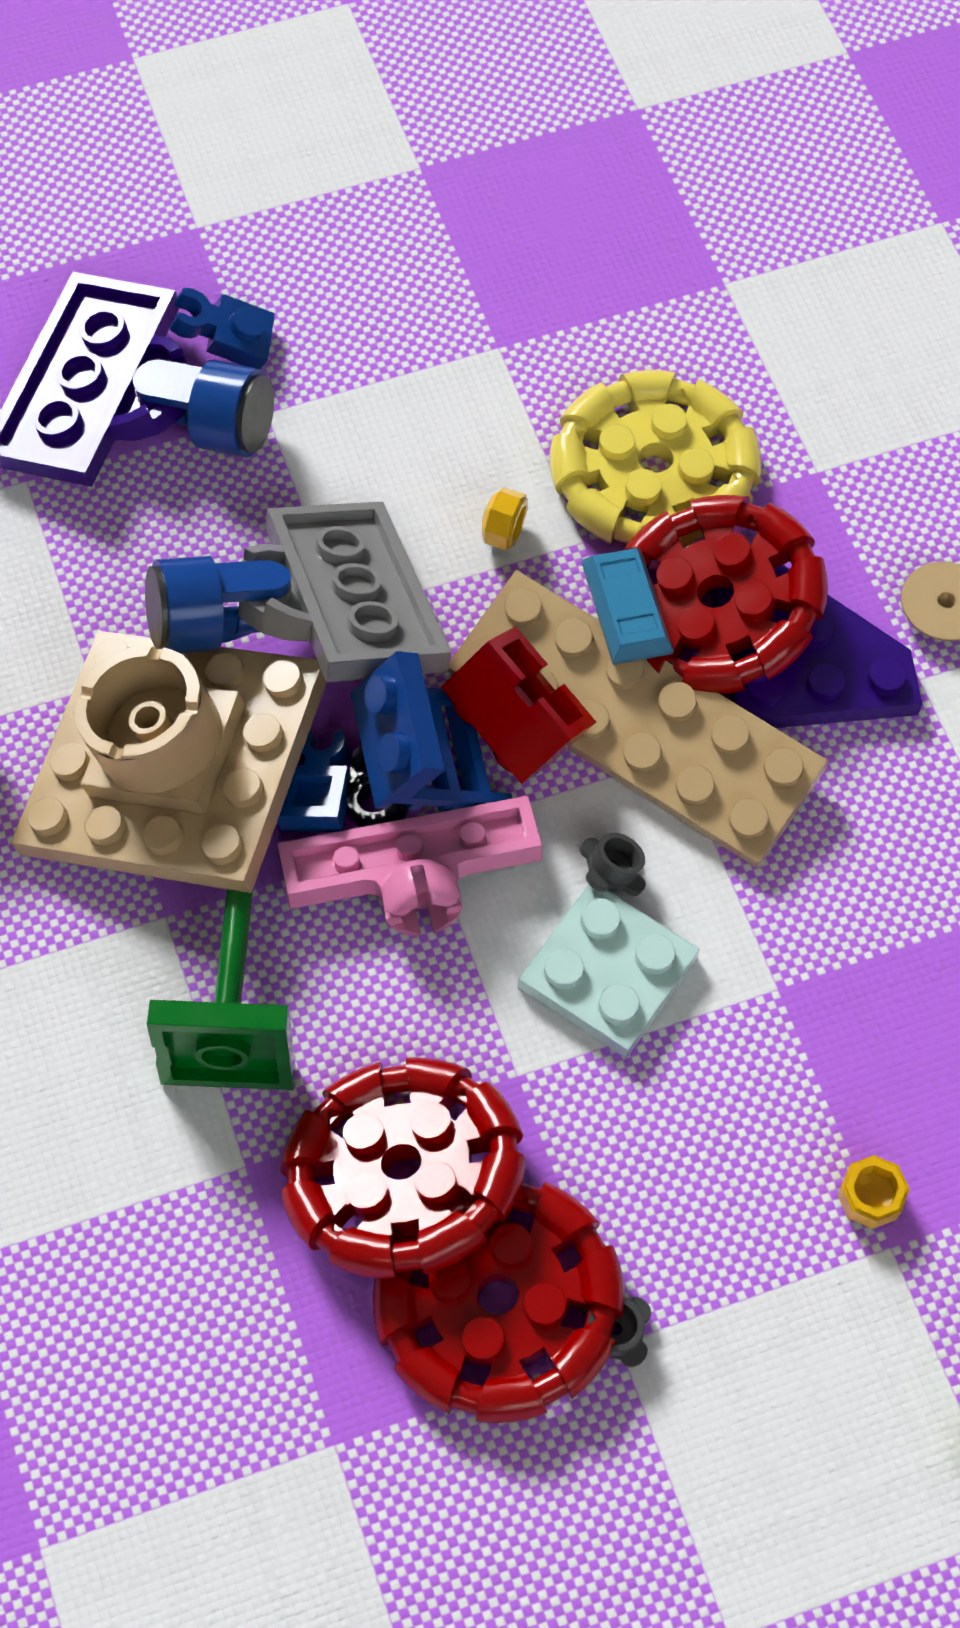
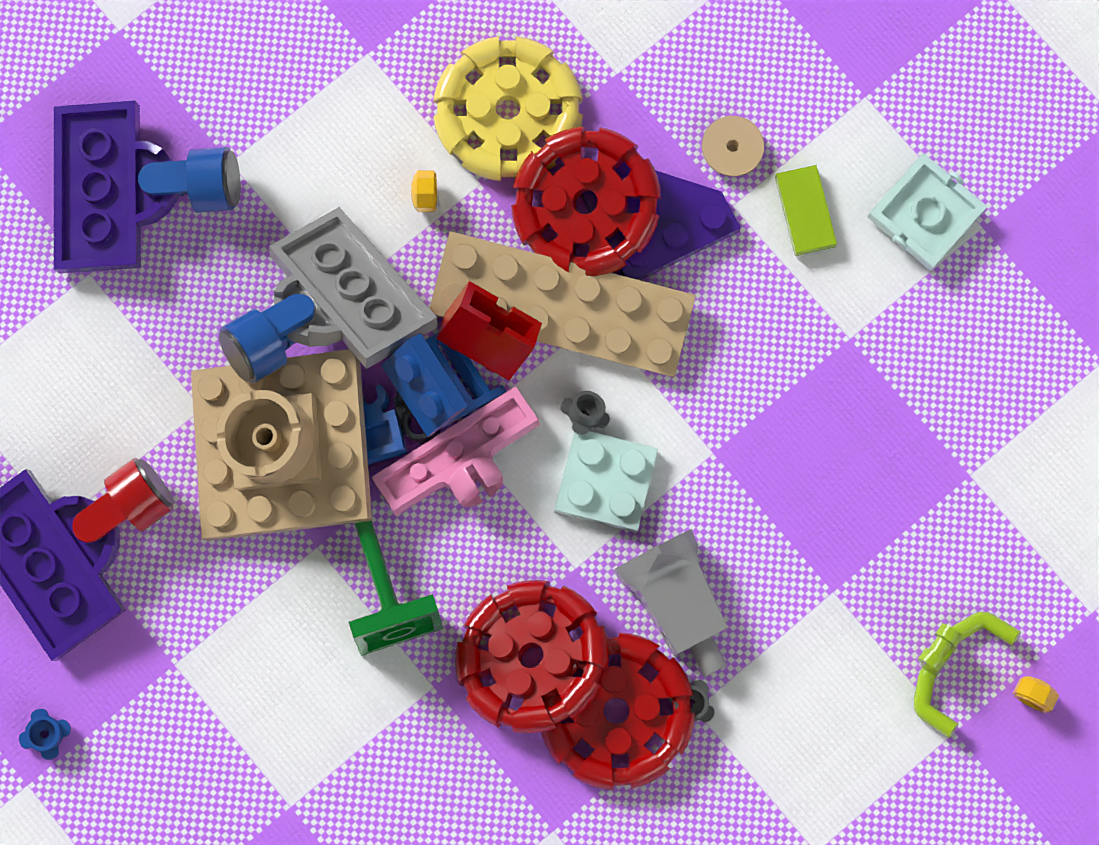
camera: 25 degrees left, 15 degrees up
(231, 325) = (184, 109): blue plate -> none
(627, 606) = (532, 234): dark azure tile -> none
(650, 1162) = (678, 599): none -> light grey piece
(873, 1192) = (813, 564): yellow tile -> none

